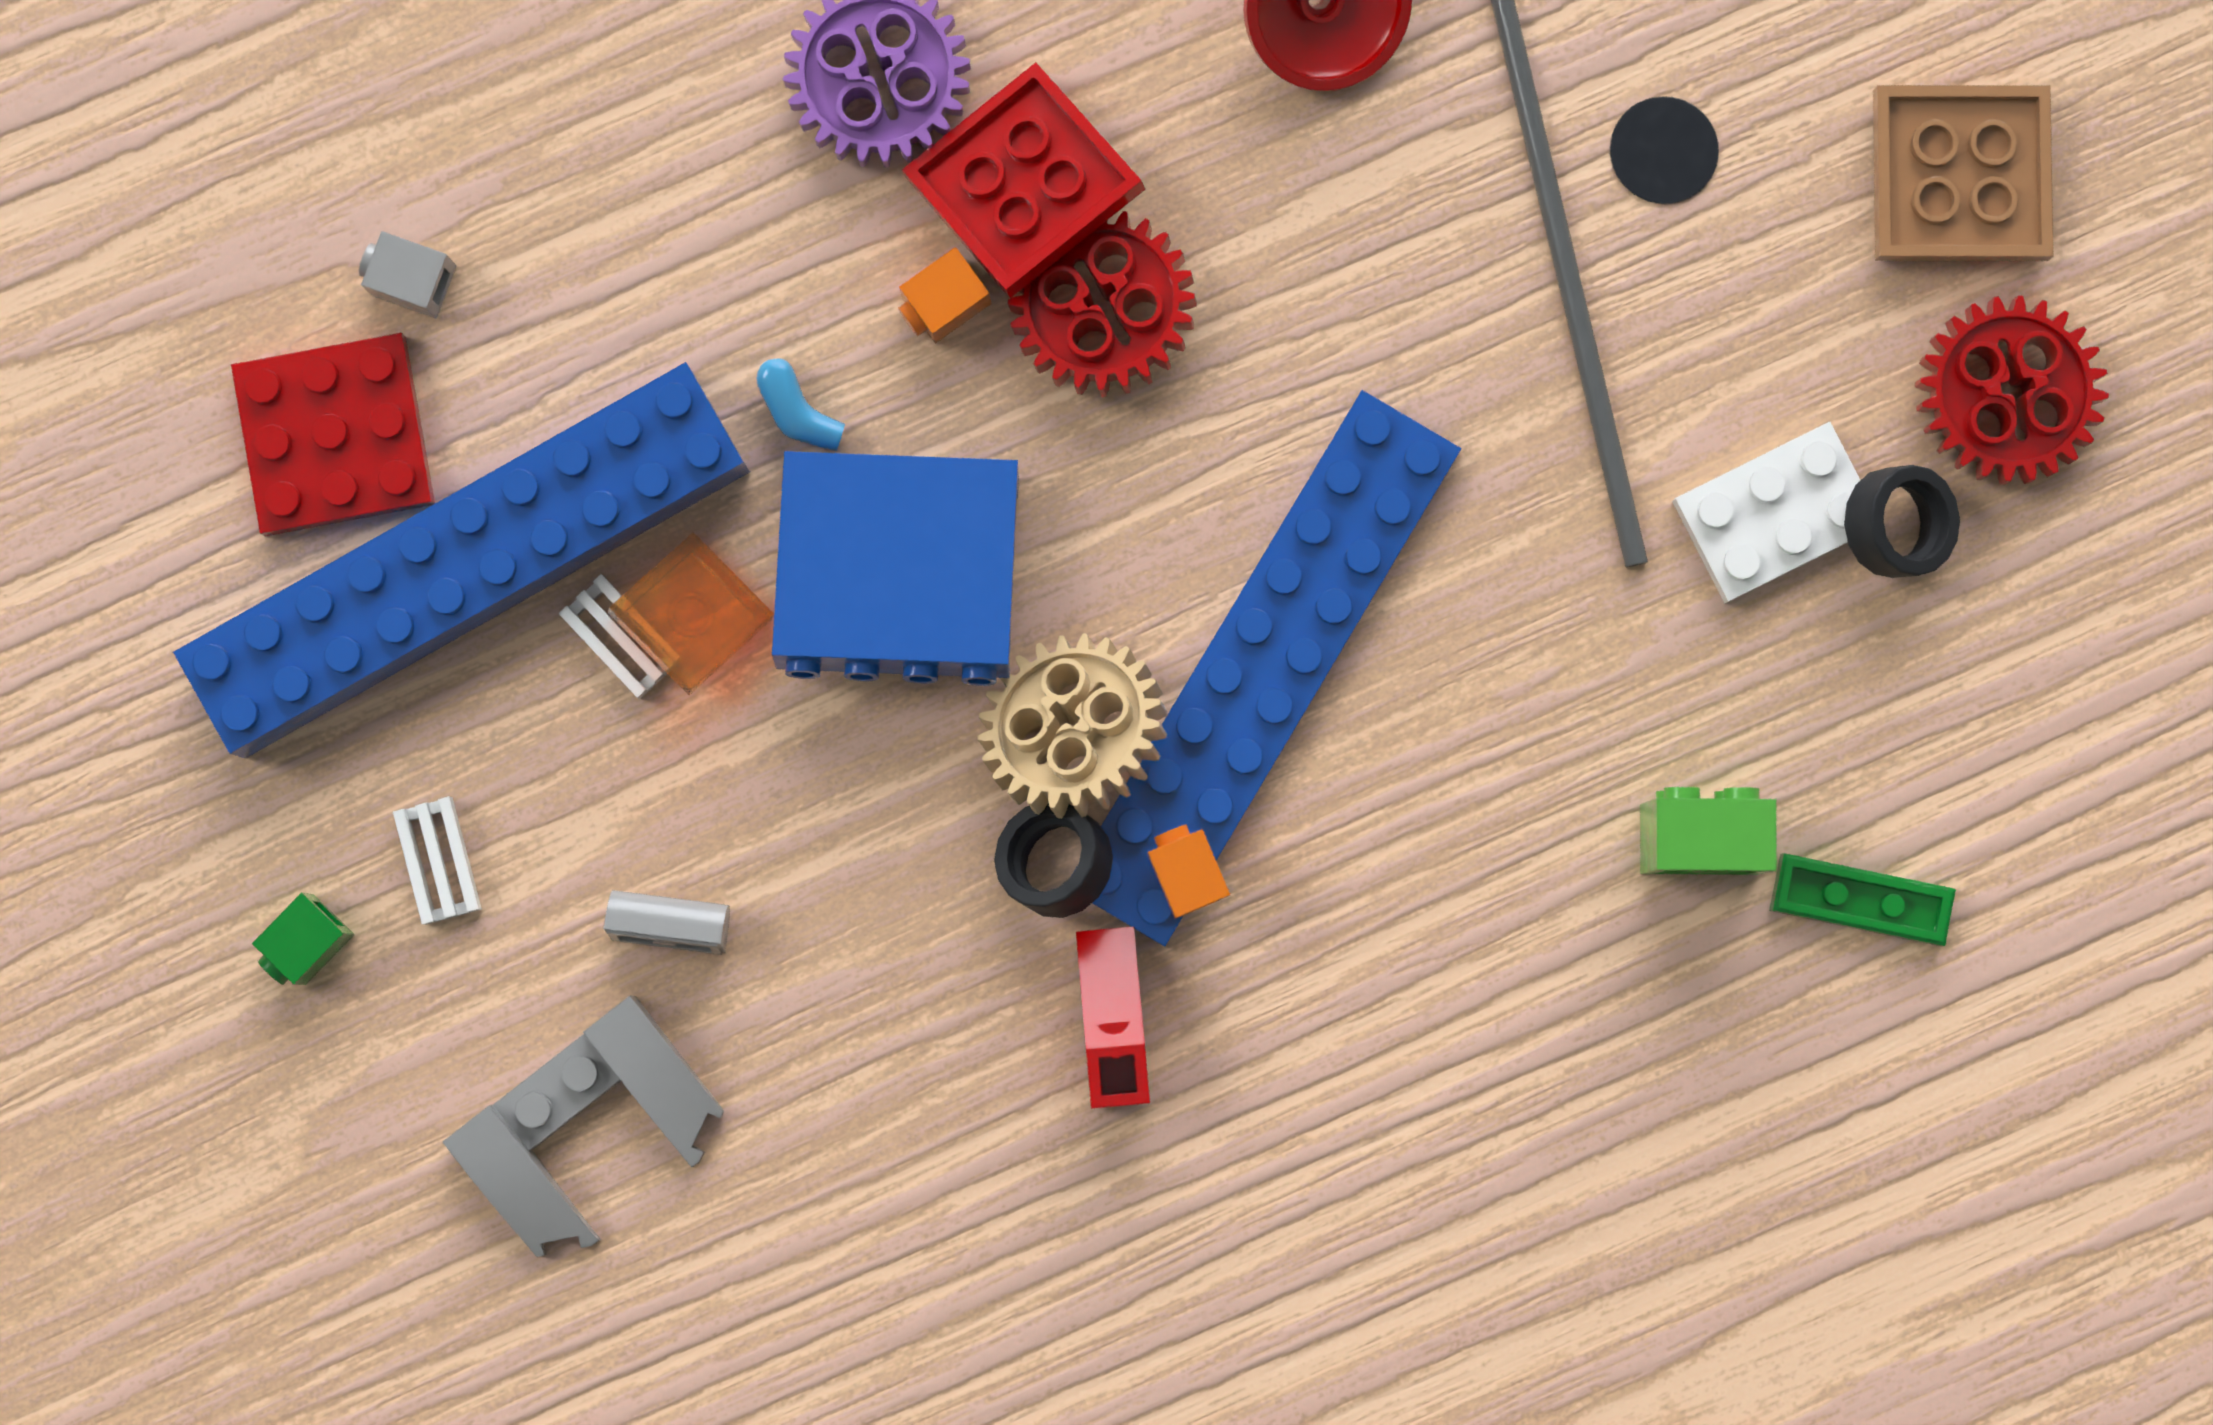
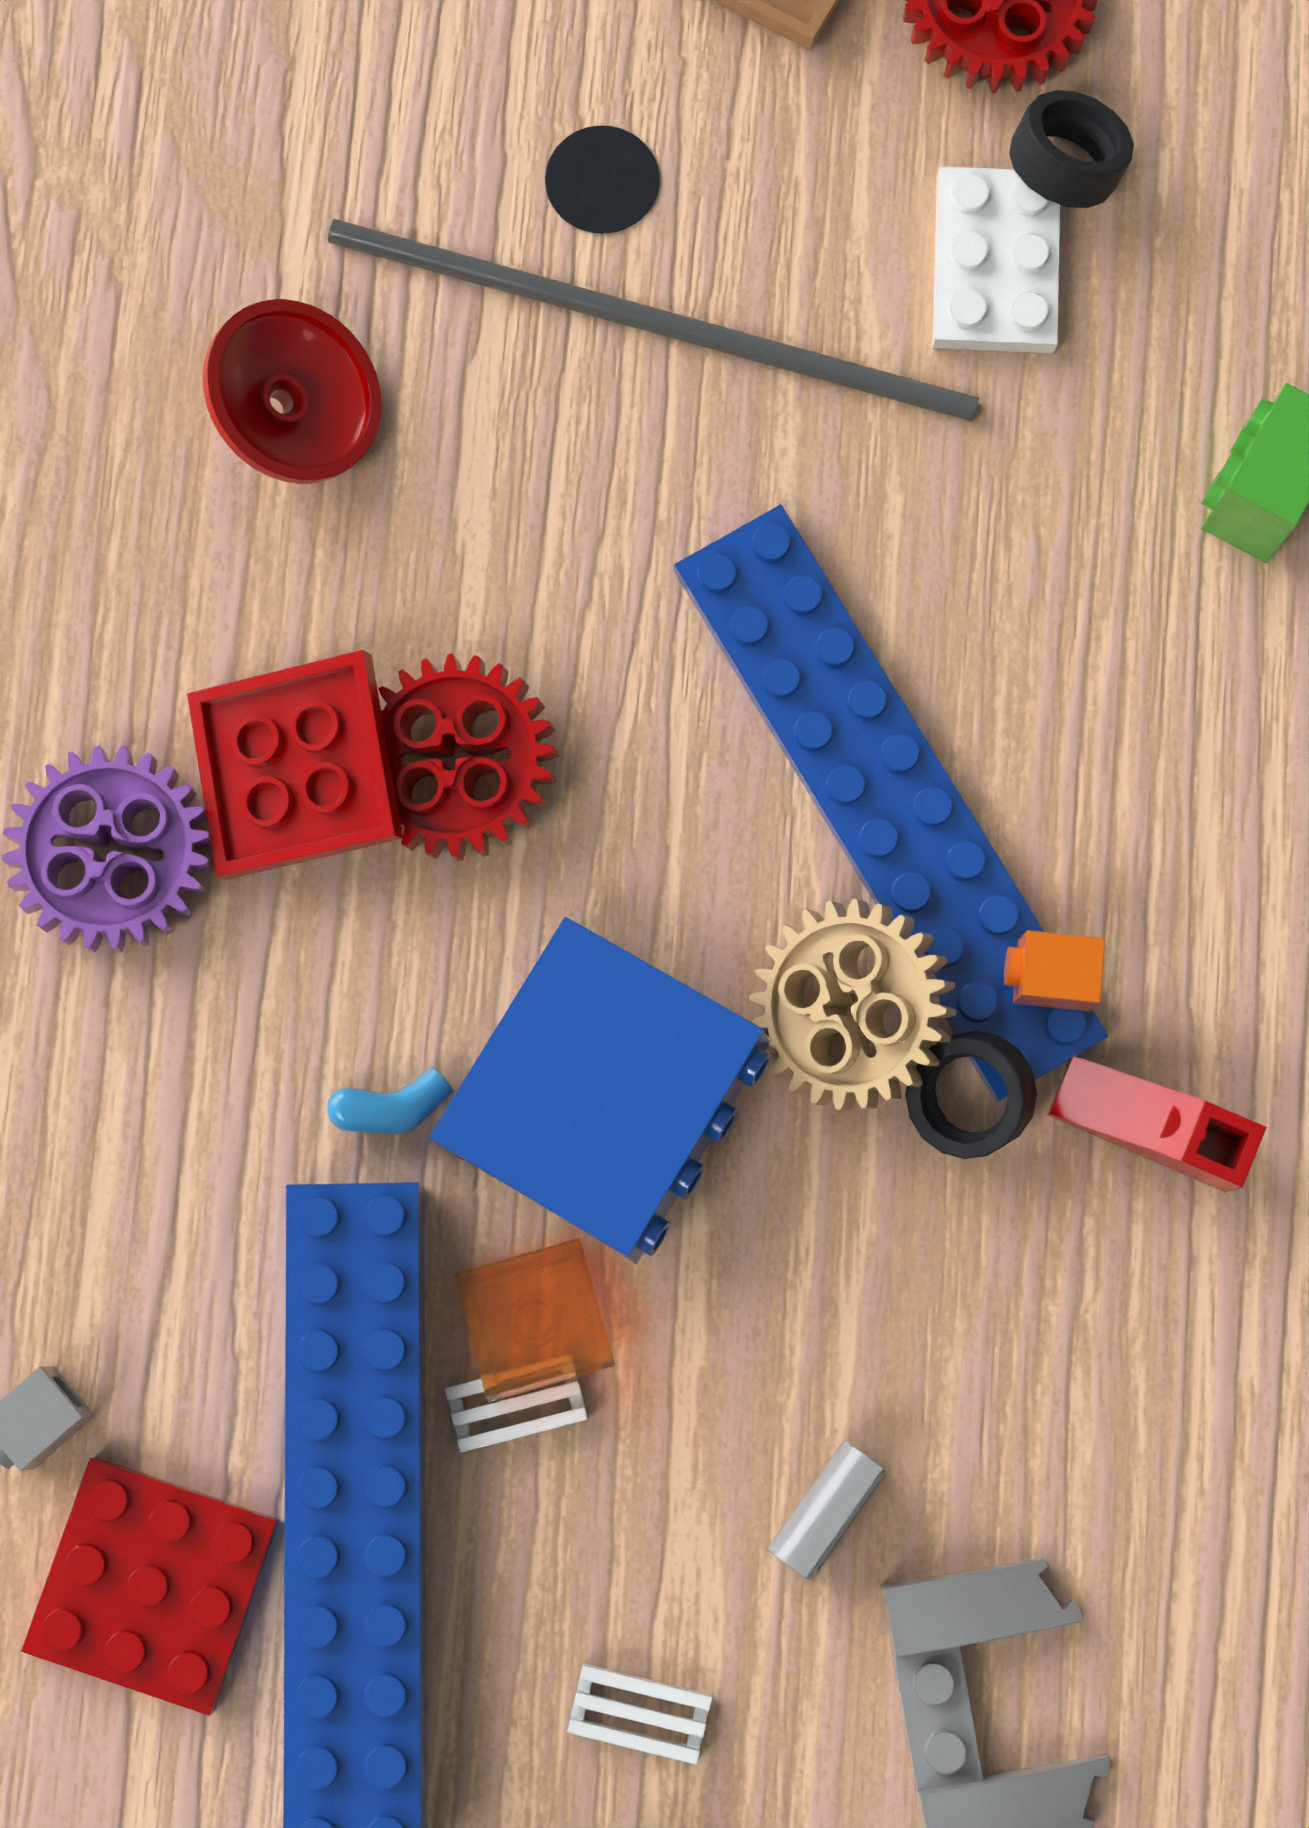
camera: 65 degrees left, 5 degrees down
(943, 296) = (362, 904): orange brick -> none

